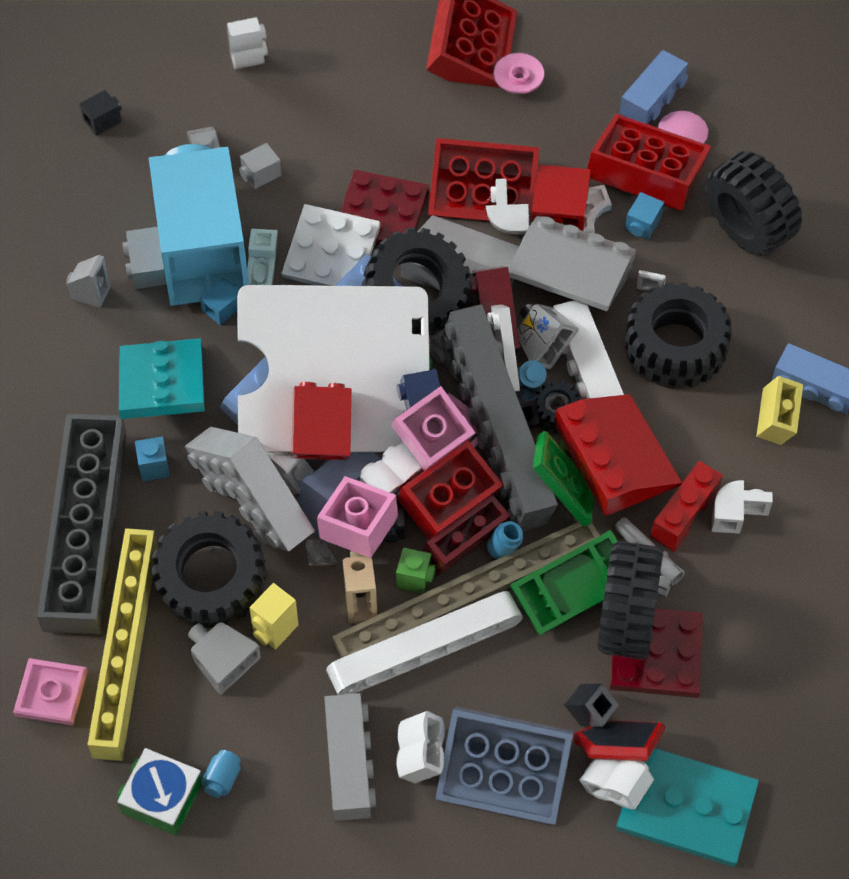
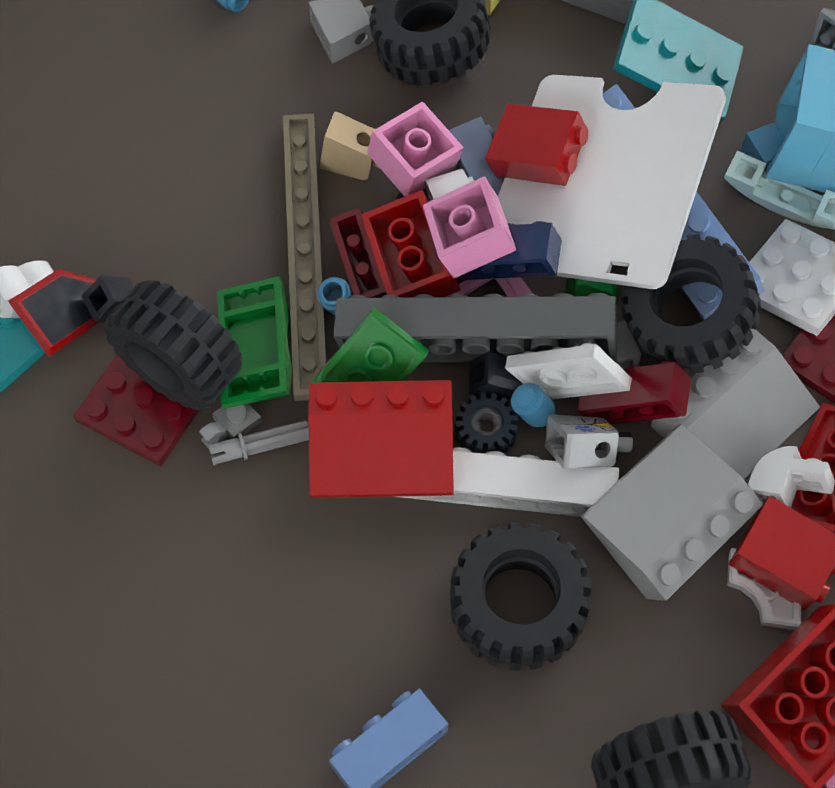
camera: 115 degrees right, 5 degrees up
(152, 458) = (587, 30): dark azure brick -> none
(242, 469) = (496, 61): light grey piece -> none
(273, 616) = (353, 64): light yellow brick -> none
(348, 758) = (186, 86): light grey brick -> none
(414, 571) = (346, 197): bright green brick -> none
(420, 747) = (153, 137): white brick -> none
(424, 643) = (265, 190): white beam -> none
(504, 765) = (106, 210): sand blue slope -> none
(644, 216) = (725, 648): dark azure brick -> none
(648, 280) = (625, 616): white slope -> none
(691, 497) = (290, 500): red arch -> none
(734, 502) = (268, 552): white brick -> none
(779, 410) = (359, 666): light yellow brick -> none

